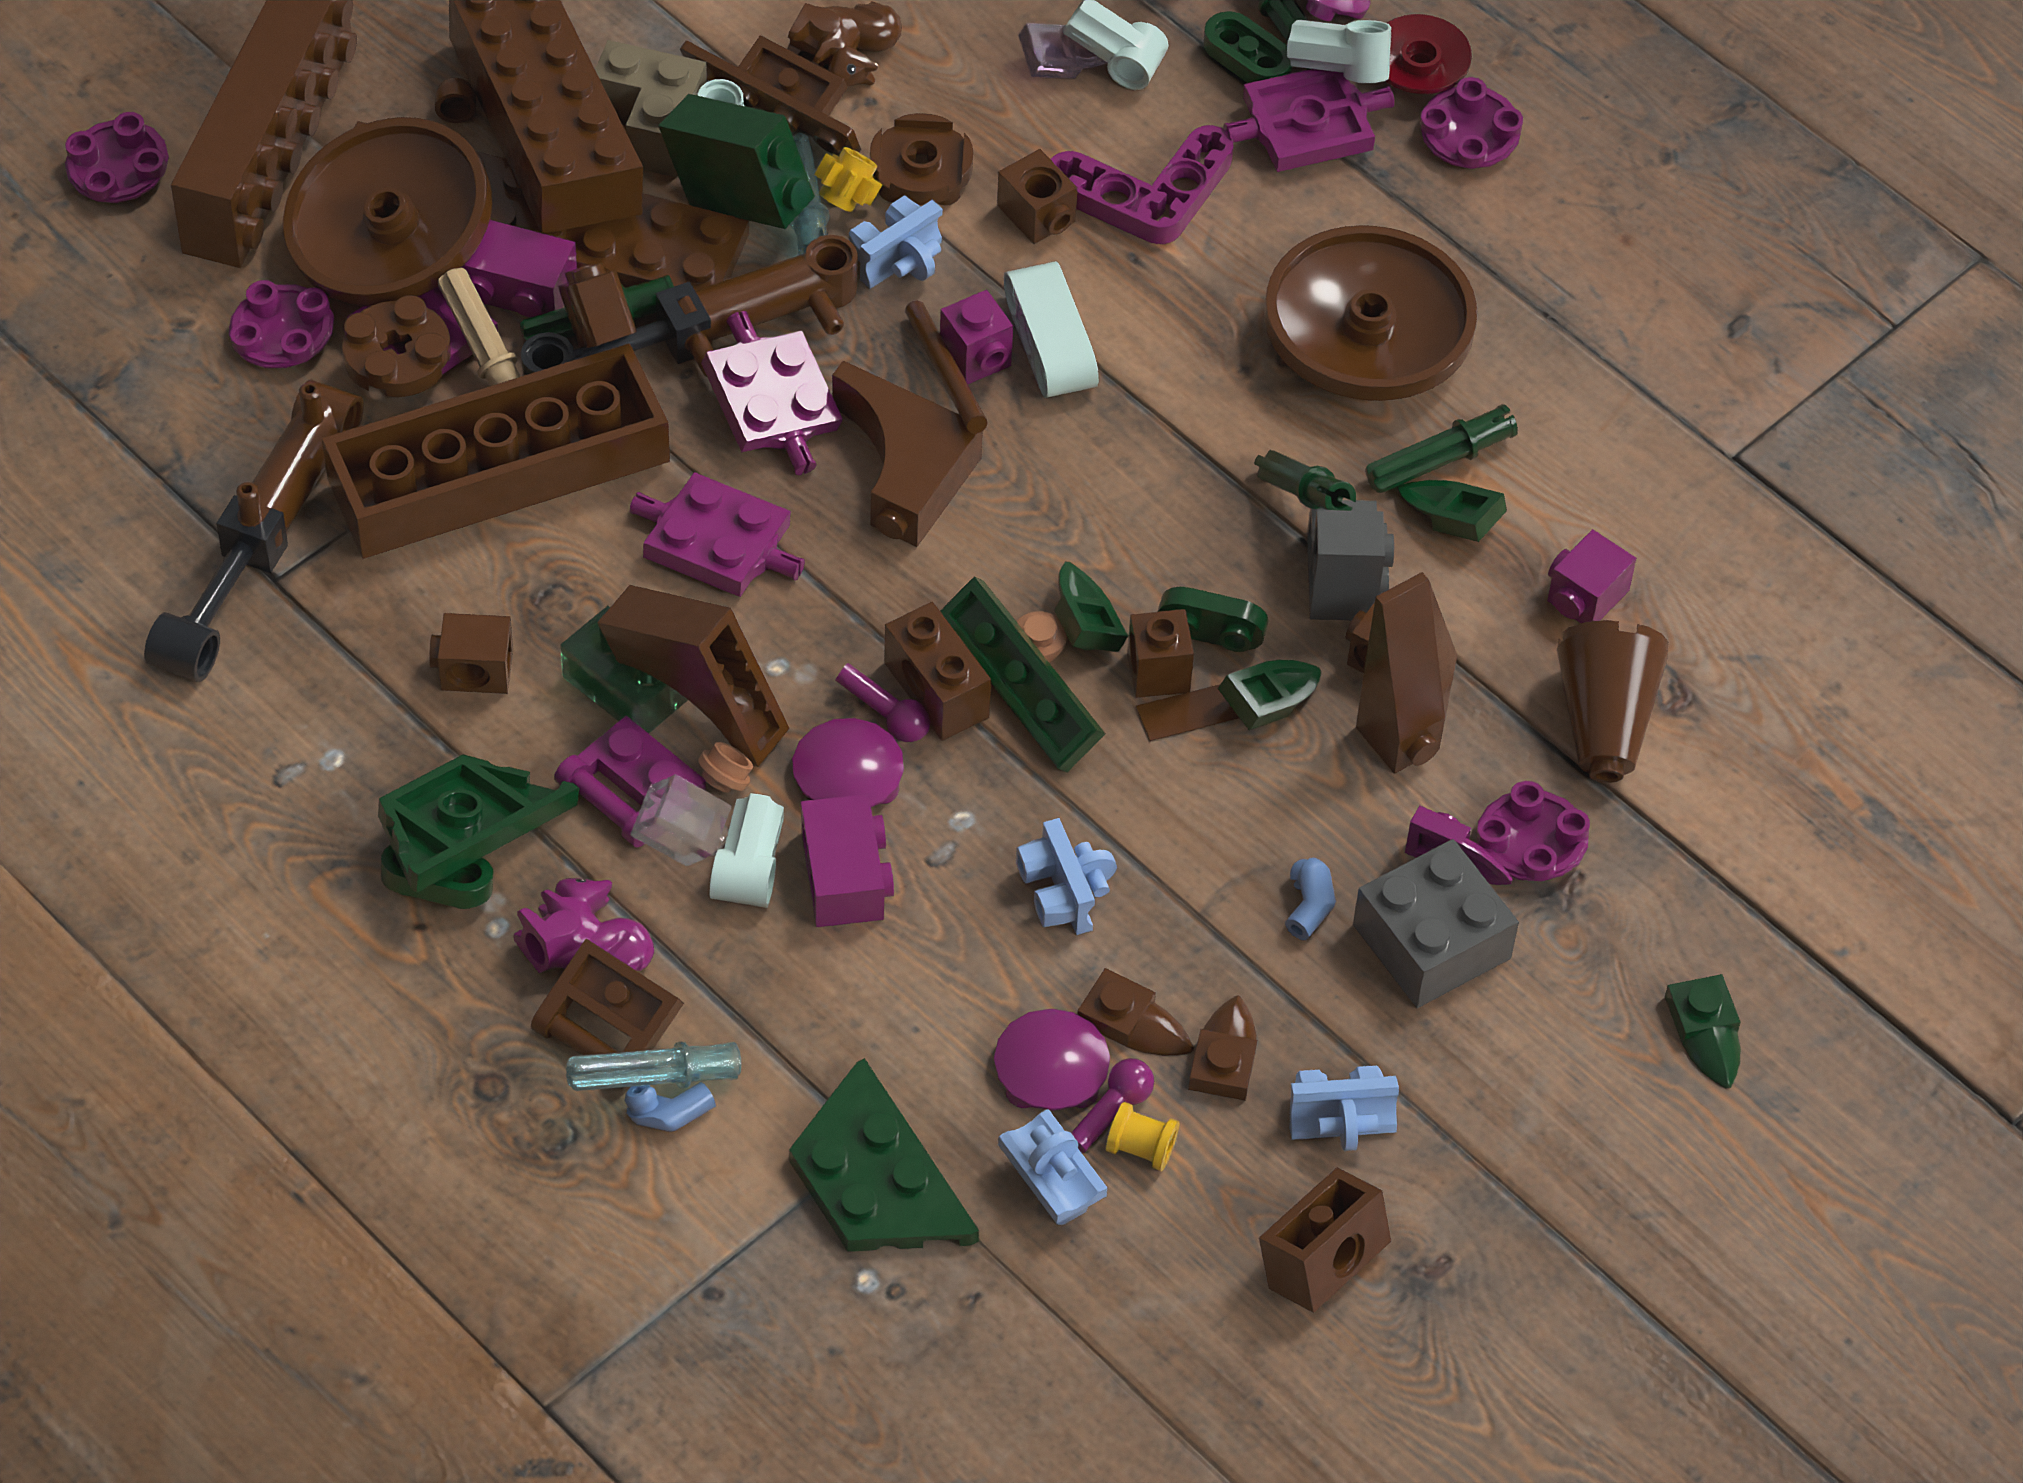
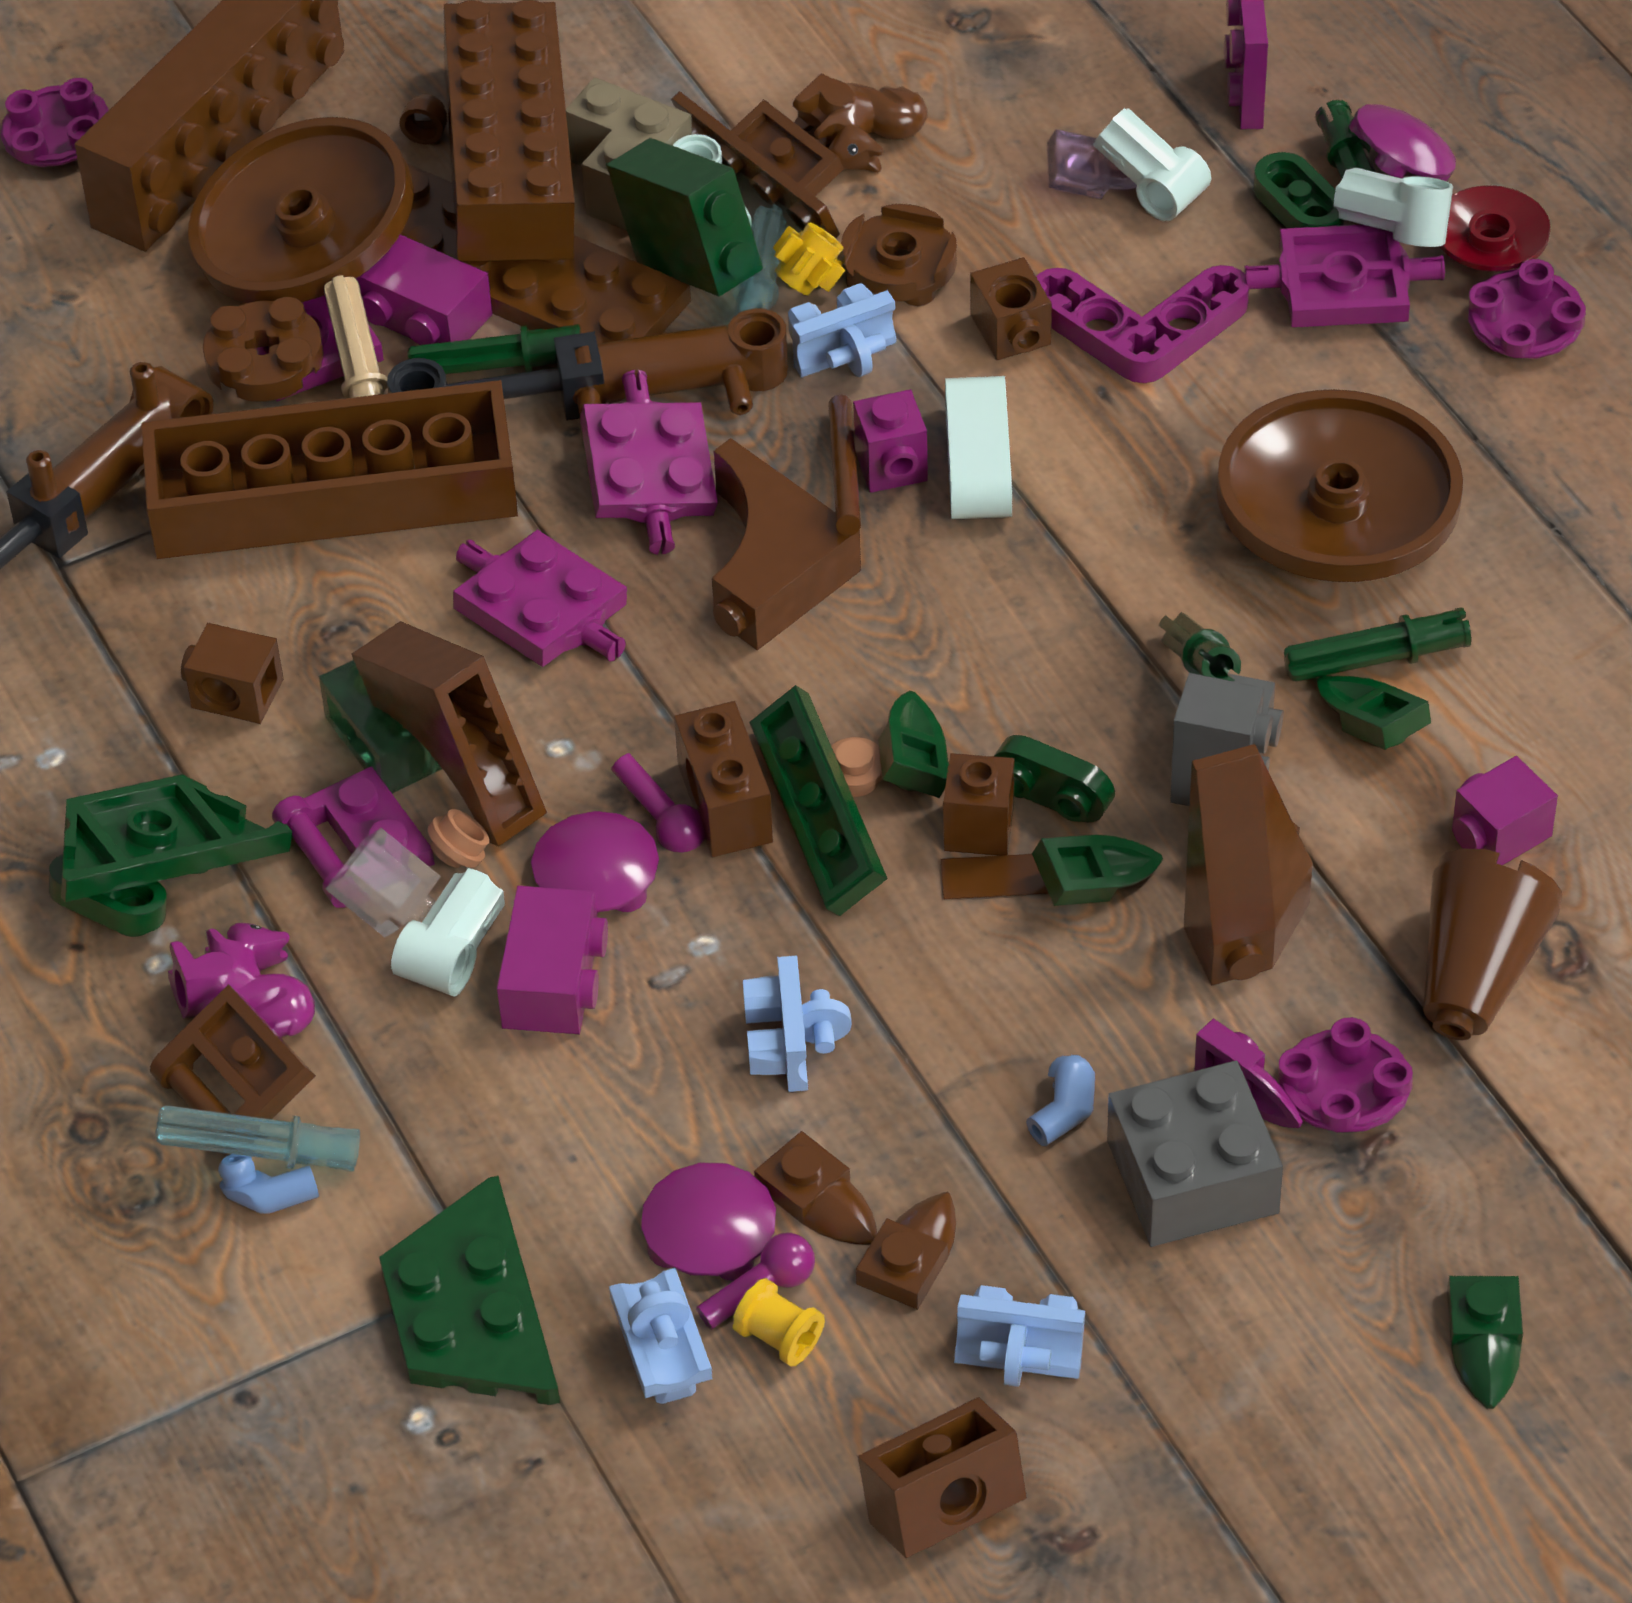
camera: 20 degrees right, 5 degrees down
(281, 324) = (159, 311): magenta dish -> none
(596, 305) = (478, 335): reddish brown brick -> none

